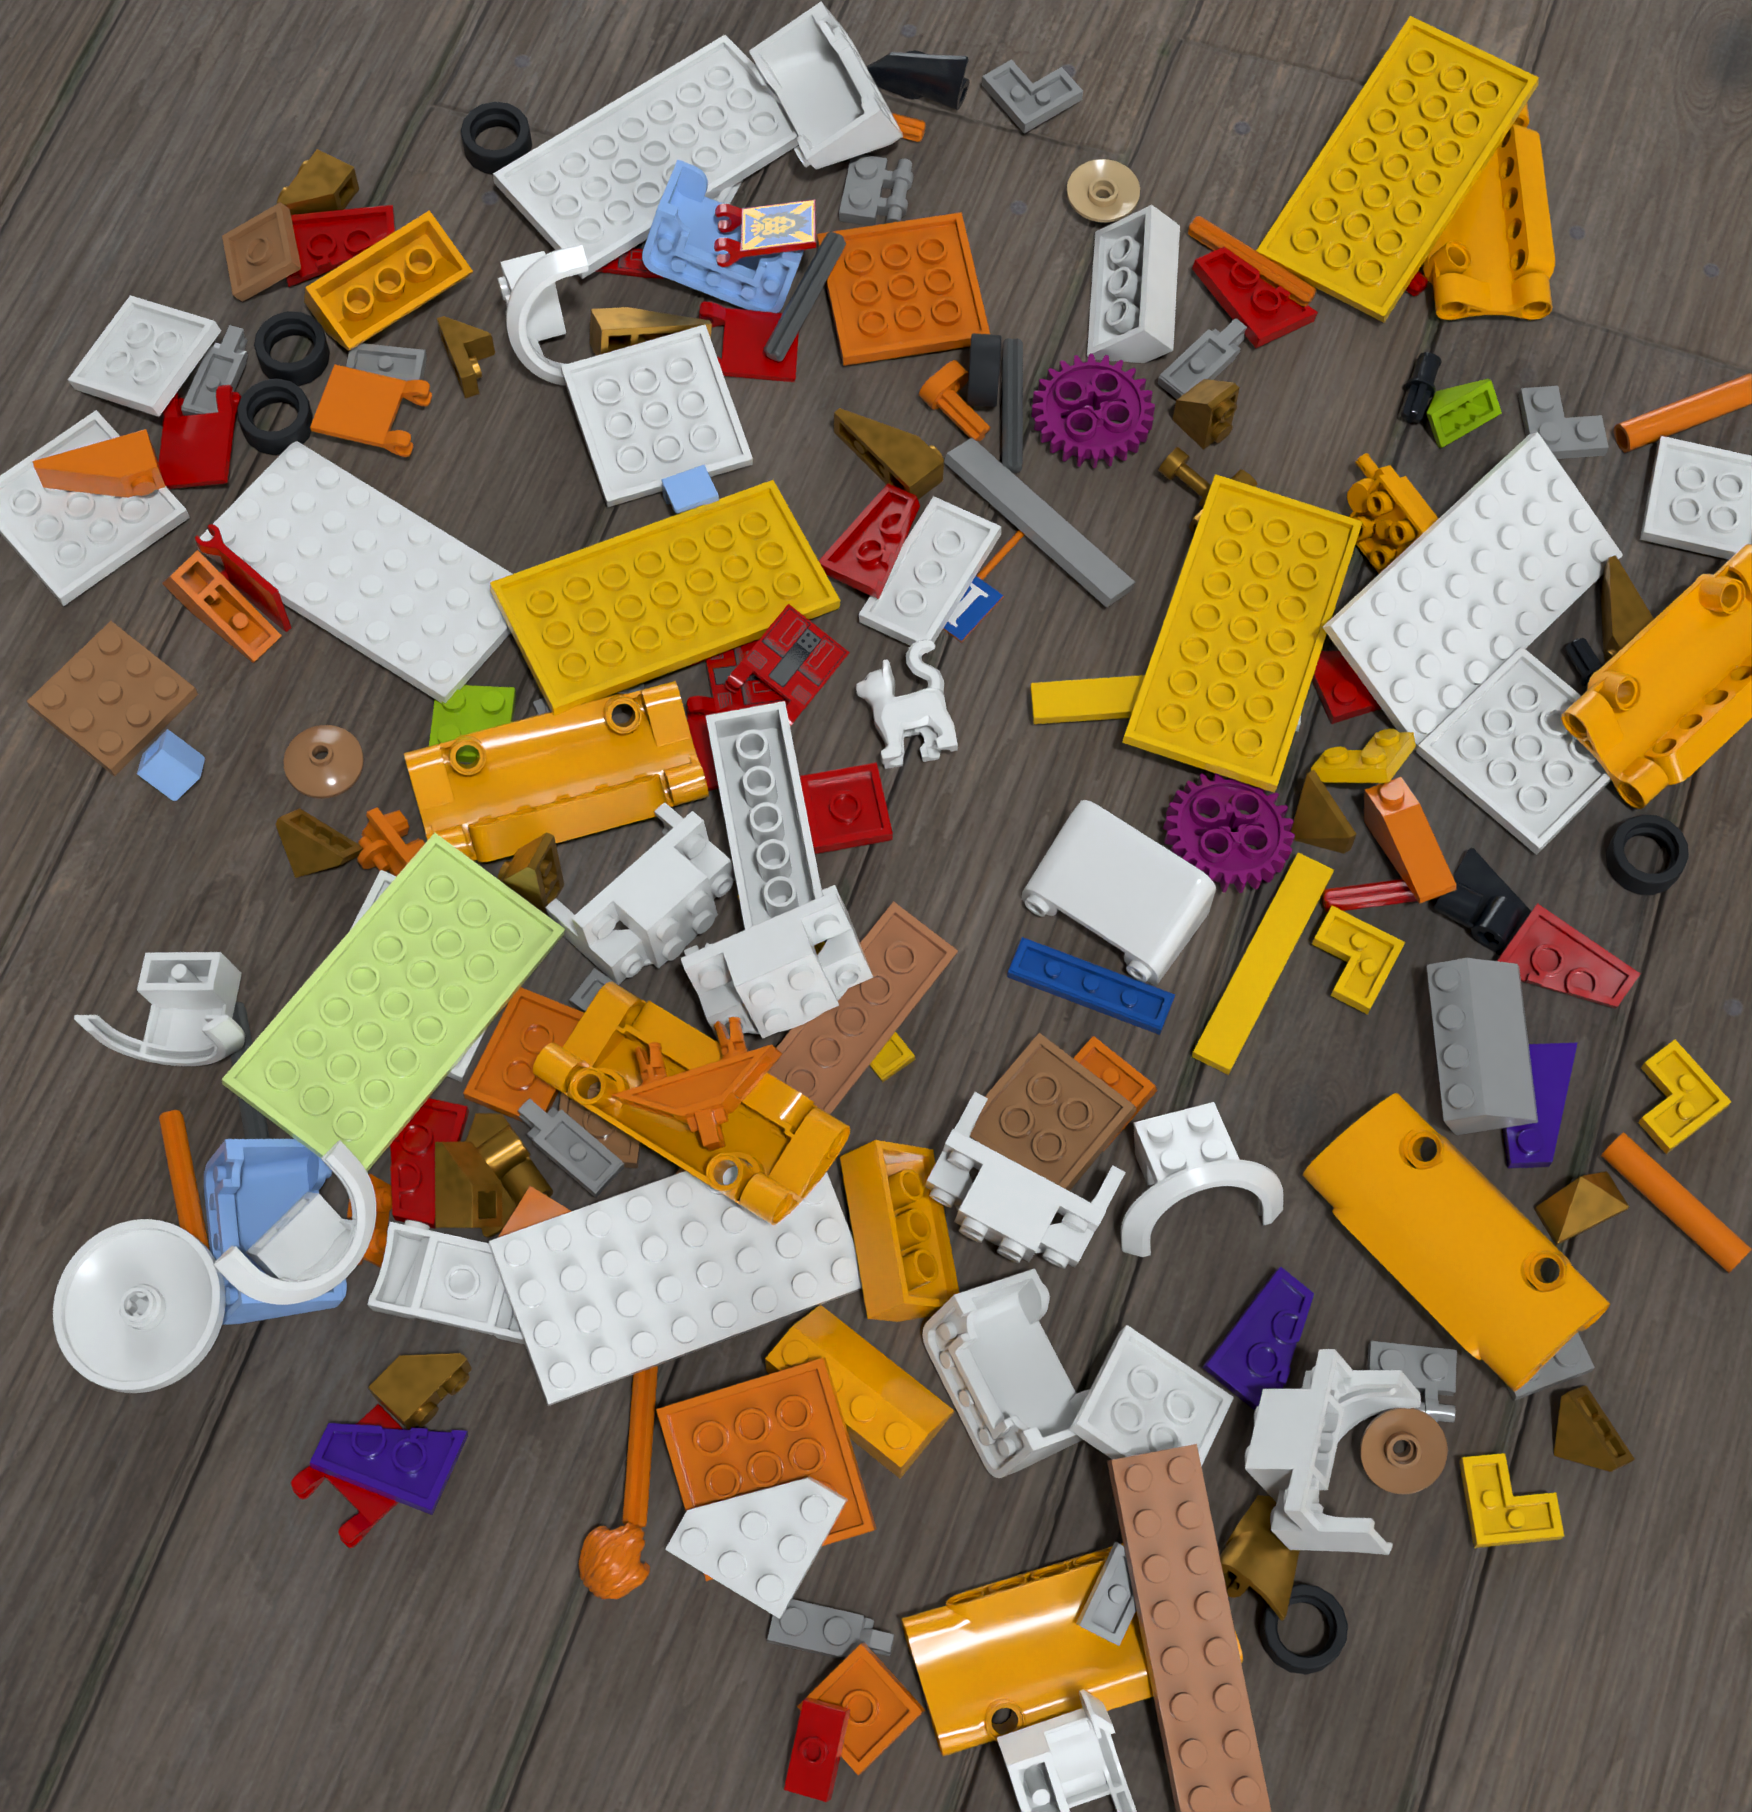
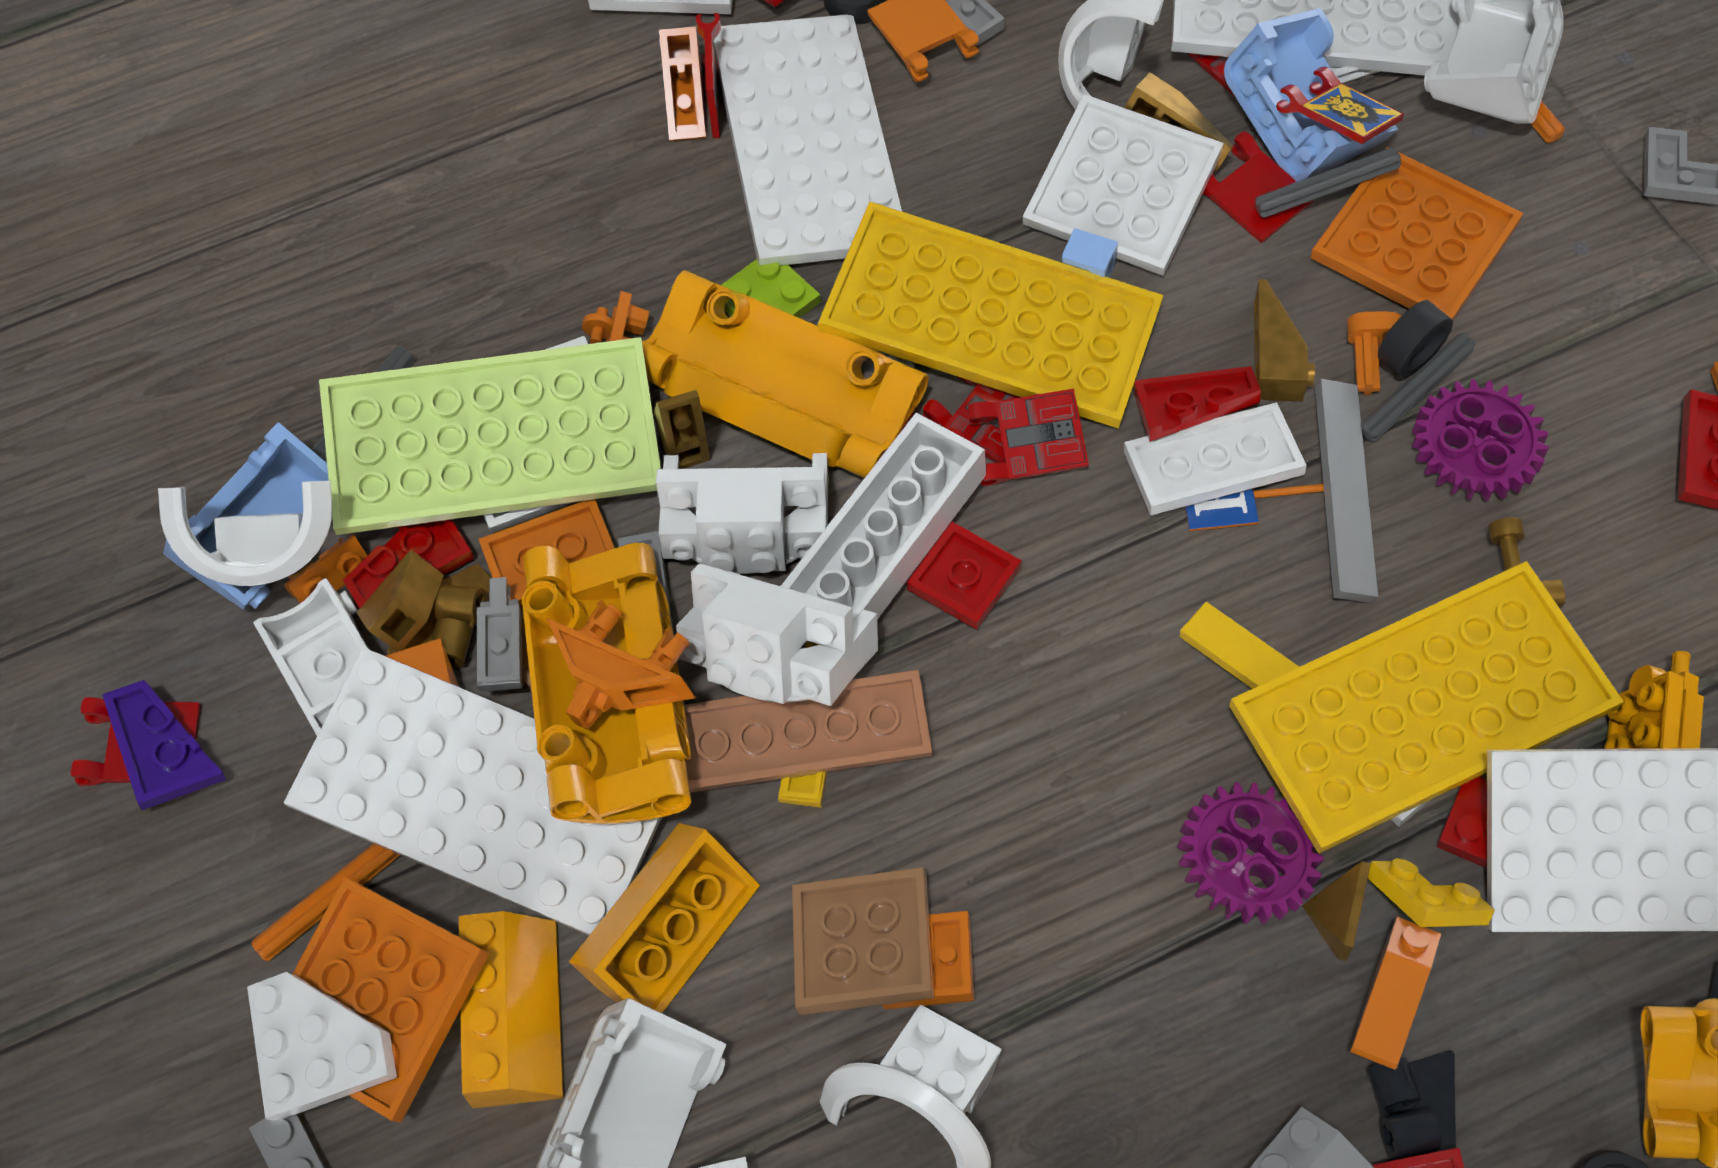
camera: 50 degrees right, 5 degrees down
(112, 698) = (554, 92): medium nougat plate -> none
(139, 1306) = (107, 491): white dish -> none
(171, 765) = (539, 161): light blue panel -> none
(182, 1174) = (245, 443): orange axle -> none
(189, 1011) = (369, 332): white piece -> none
(313, 844) = (572, 285): pearl gold slope -> none
(323, 776) = (646, 252): medium nougat dish -> none
(418, 1384) = (227, 711): pearl gold slope -> none
(465, 347) = (1032, 38): pearl gold slope -> none
(612, 1561) = (211, 959): orange hair -> none
(864, 188) = (1465, 143): light grey plate -> none
(909, 714) = (1087, 547): white animal -> none
(923, 75) = (1596, 92): black panel -> none
(1012, 1202) = (750, 975): white piece -> none
(1091, 985) = (1013, 875): blue tile -> none
(1107, 180) = (1675, 273): tan dish -> none
(1122, 889) = (1105, 822): white windscreen -> none
(1134, 288) = (1616, 374): white slope -> none
(1203, 359) = (1618, 474): light grey hinge -> none
(1207, 411) = (1577, 513): pearl gold slope -> none
(1262, 963) = (1172, 982): yellow tile -> none
(1368, 895) = (1316, 1007): red axle -> none
(1368, 953) = (1268, 1053): yellow plate -> none
(1515, 754) = (1575, 1009): white plate -> none

